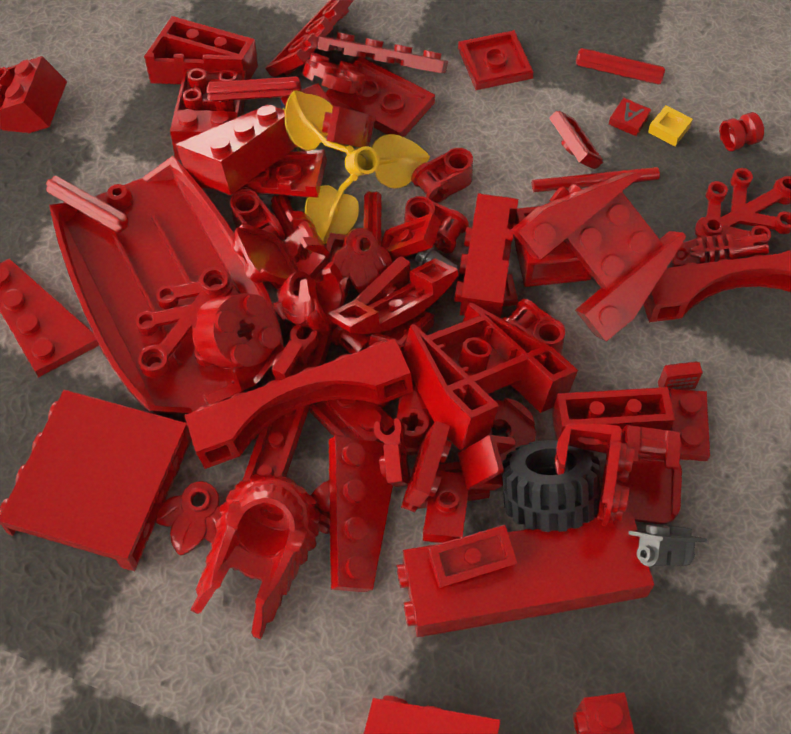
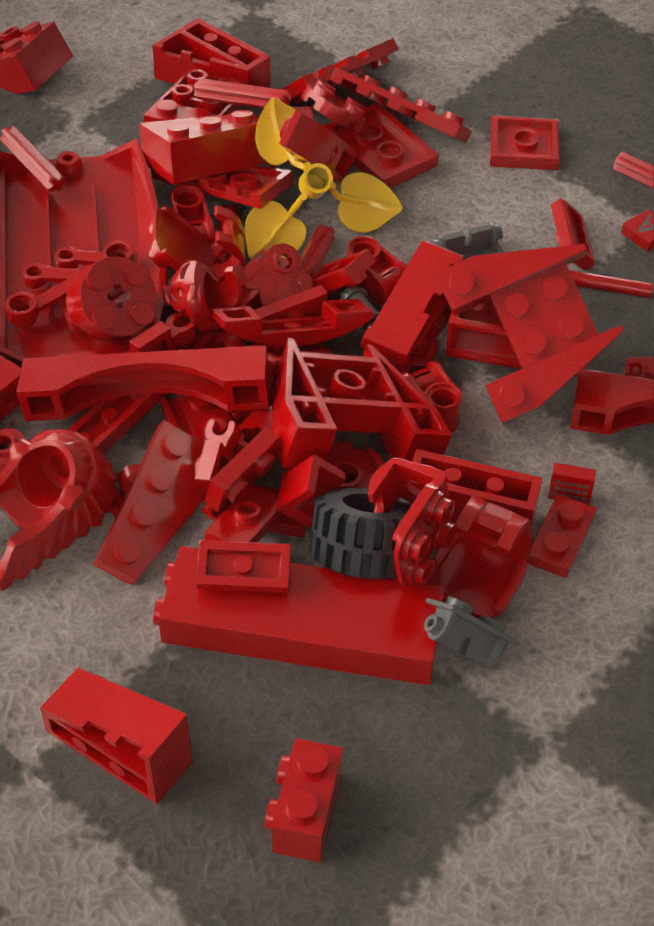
camera: 20 degrees right, 10 degrees down
(444, 174) = (410, 227): red piece -> none
(498, 178) = (480, 241): none -> dark grey hinge

